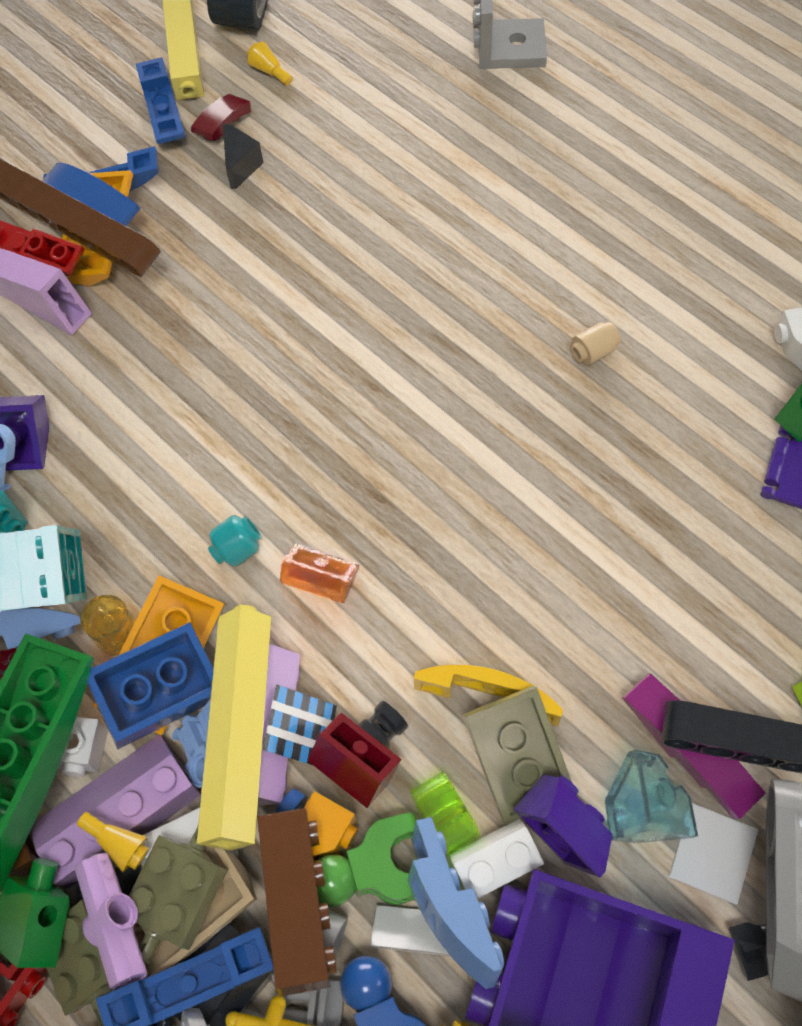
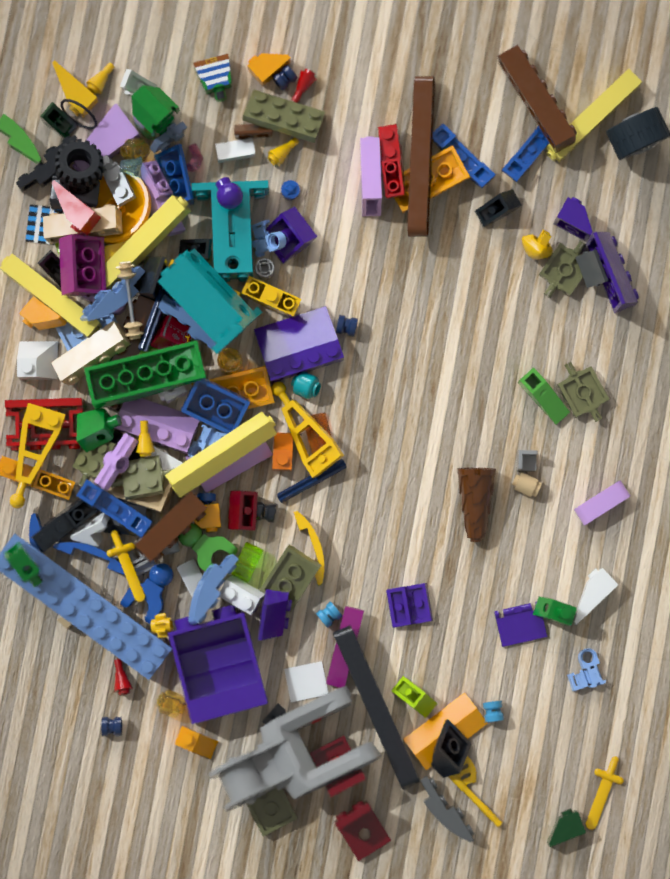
camera: 45 degrees right, 20 degrees up
(26, 492) = (264, 269): none -> light grey wheel
(72, 504) = (271, 297): none -> yellow slope
(92, 192) = (440, 165): blue slope -> none
(107, 59) = (537, 99): none -> reddish brown brick
(170, 515) = (298, 344): none -> dark purple slope
(195, 434) = (346, 325): none -> dark blue wheel
(198, 175) = (498, 207): none -> black slope
(222, 111) = (545, 188): dark red slope -> none
(241, 155) = (525, 220): black slope -> none
(263, 59) = (602, 182): yellow cone -> none
(284, 157) = (537, 247): none -> yellow piece
(285, 98) = (574, 219): none -> dark purple slope
(296, 723) = (242, 476): sticker -> none
(312, 638) = (282, 452): none -> orange slope
(337, 150) = (563, 270): none -> olive plate
(359, 573) = (323, 457): none -> yellow plate
(360, 105) = (591, 268): none -> dark grey piece
(379, 92) = (618, 285): none -> slope
(382, 628) = (310, 482): none -> dark blue axle
(478, 253) = (543, 395): none -> bright green slope
(512, 213) = (583, 391): none -> olive plate
(556, 326) = (526, 460): none -> light grey panel
(562, 404) = (476, 493): none -> reddish brown cone
(619, 734) = (332, 611): none -> dark azure wheel
(646, 803) = (307, 642): clear light blue slope -> none
(679, 605) = (409, 605): none -> dark purple slope
(683, 271) = (602, 502): none -> lavender beam

